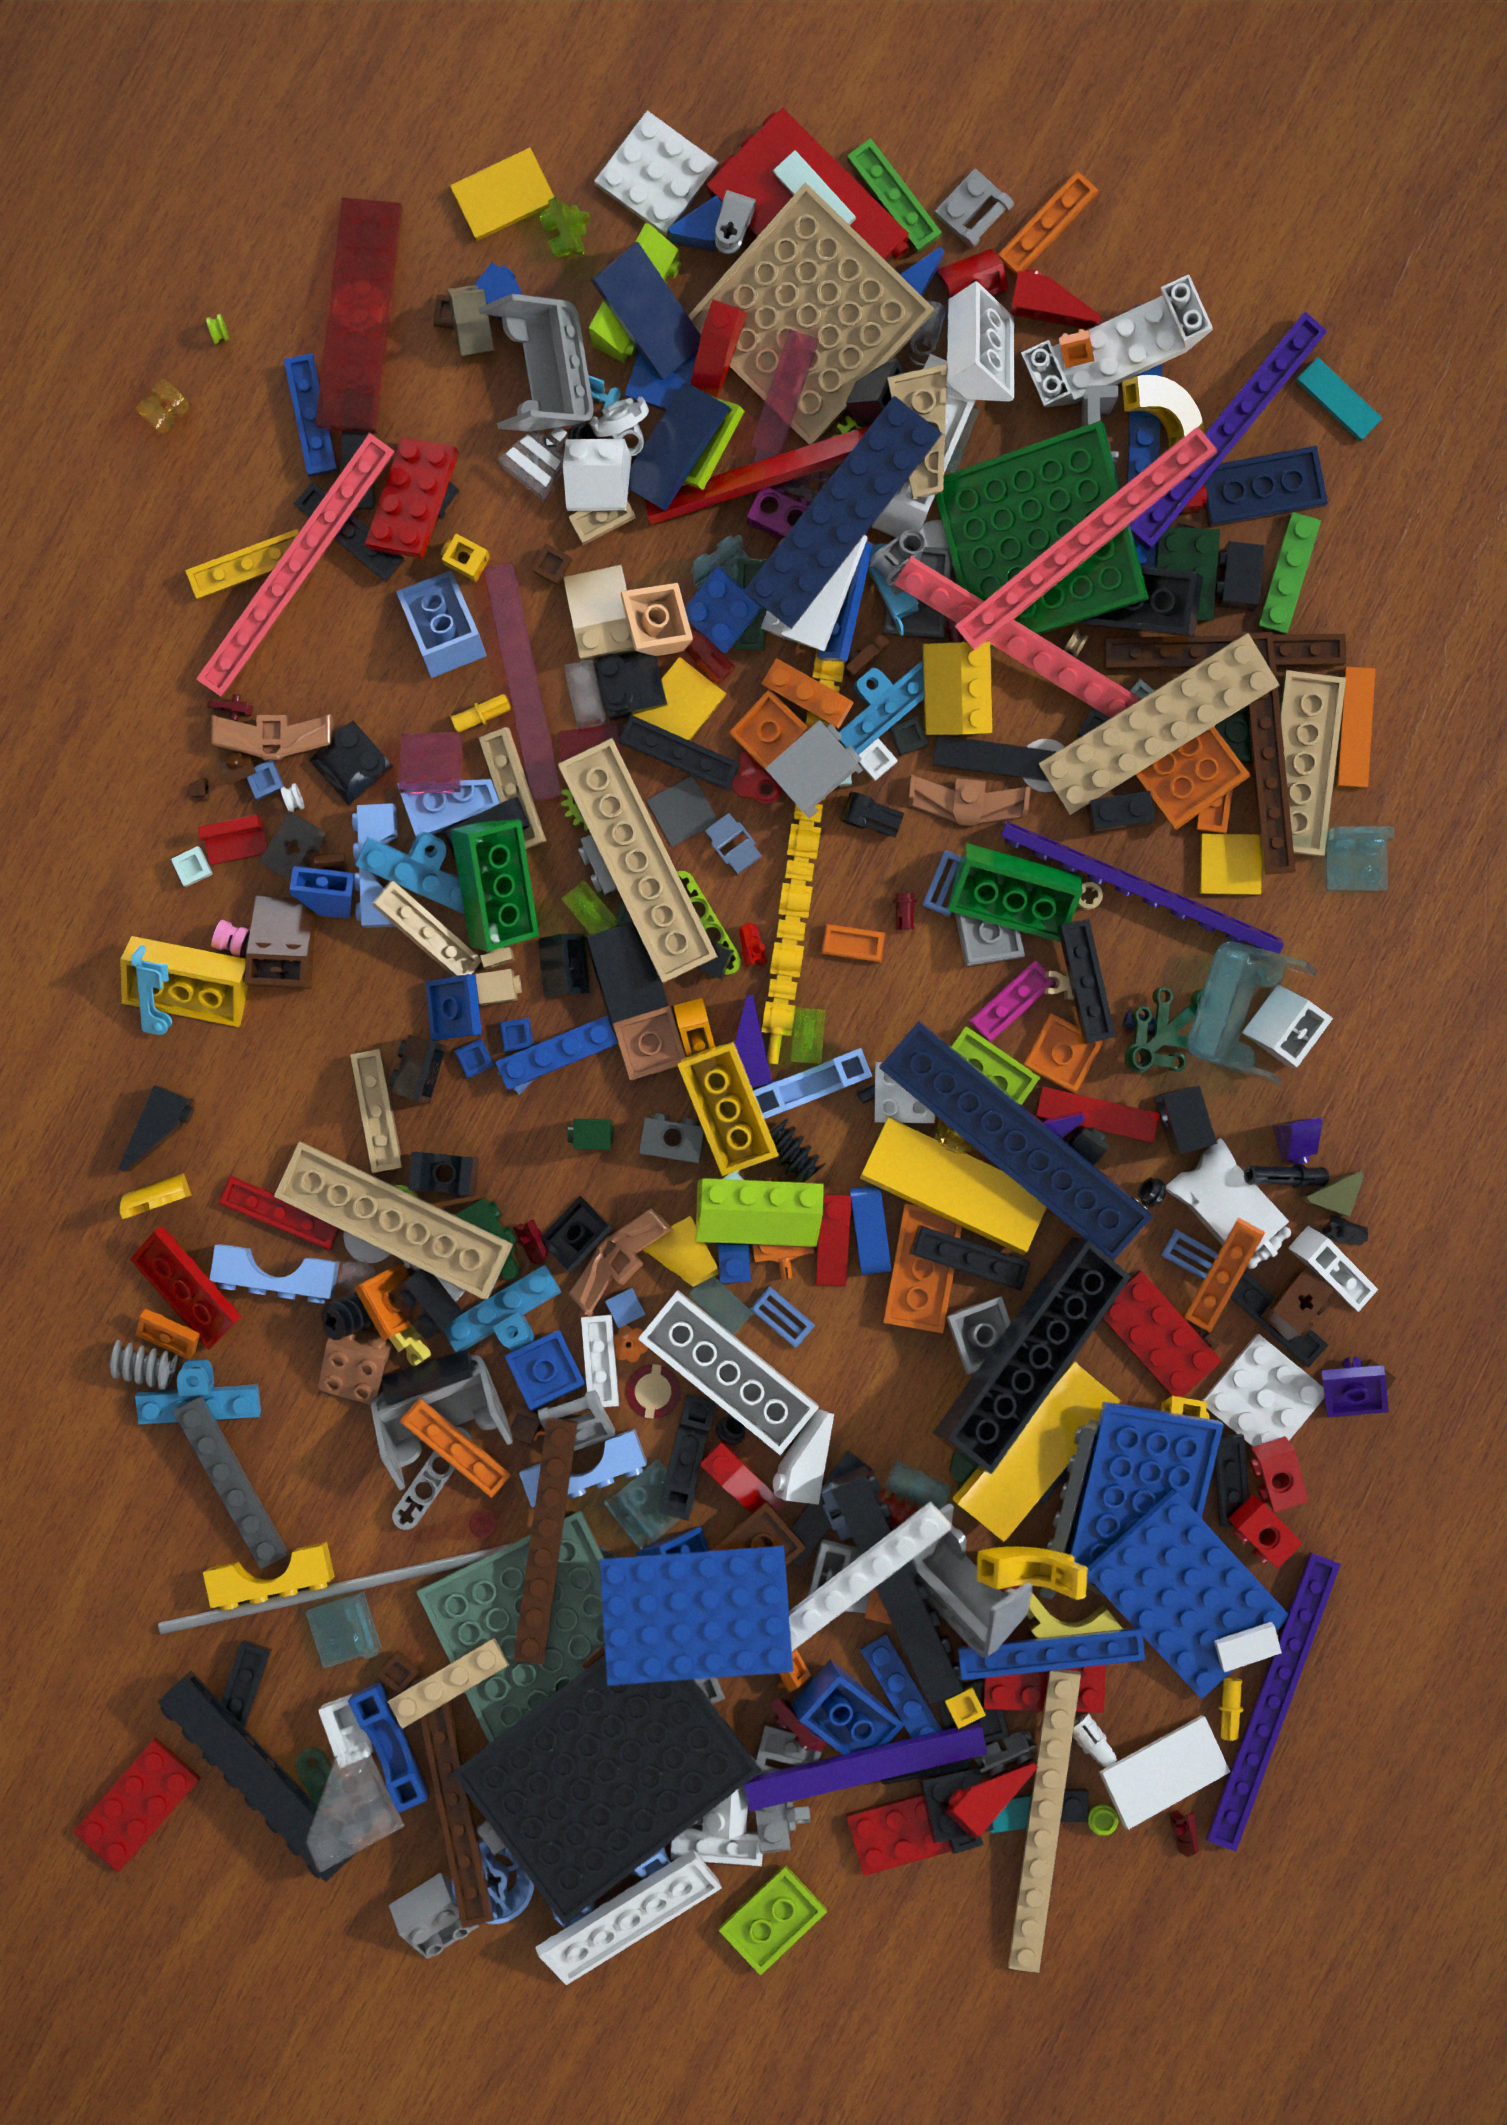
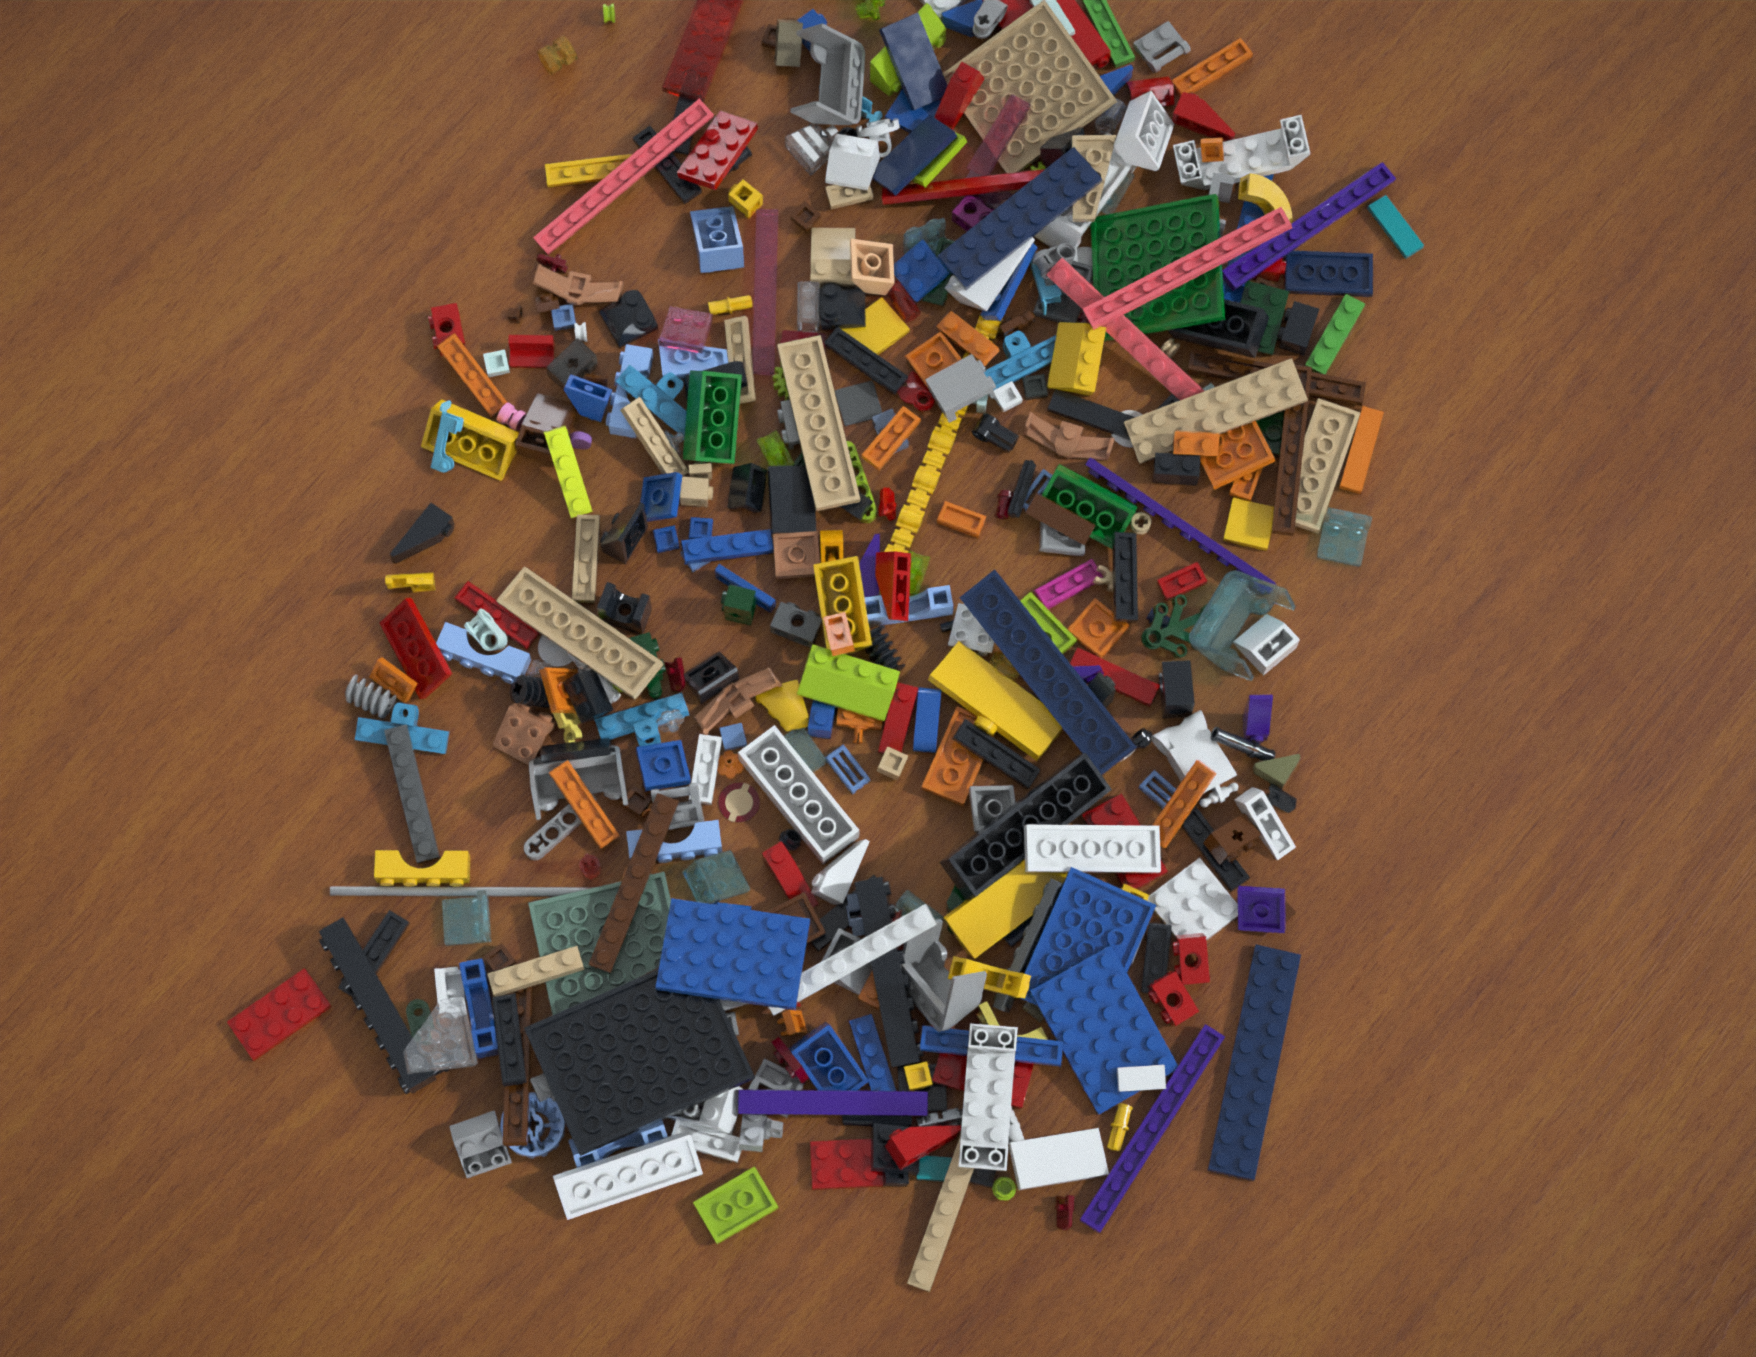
camera: 10 degrees right, 15 degrees down
(128, 847) = (444, 317): none -> red brick
(164, 893) = (472, 375): none -> orange tile
(271, 1242) = (483, 628): none -> light aqua piece
(304, 391) = (658, 69): blue plate -> none
(323, 1002) = (568, 471): none -> neon yellow plate
(329, 949) = (580, 440): none -> medium lavender tile
(437, 1785) = (509, 1040): none -> black tile
(452, 923) = (674, 440): none -> clear plant
(540, 1309) = (670, 720): none -> clear plant
(593, 1105) = (730, 578): none -> blue tile
(686, 1457) = (752, 849): black slope -> none
(733, 1156) = (838, 634): none -> orange plate
(737, 857) = (891, 438): none -> orange plate
(787, 1060) = (893, 579): none -> red slope
(839, 1302) = (892, 763): none -> tan brick
(923, 886) = (1021, 489): none -> black axle
(949, 1227) = (985, 725): none -> yellow tile
(985, 920) = (1060, 518): none -> reddish brown tile
(1063, 1734) = (987, 1097): none -> white slope
(1124, 1367) = (1092, 848): none -> white plate
(1142, 775) = (1196, 443): none -> orange plate
(1159, 965) = (1182, 581): none -> red plate
(1382, 1584) = (1254, 1063): none -> dark blue plate

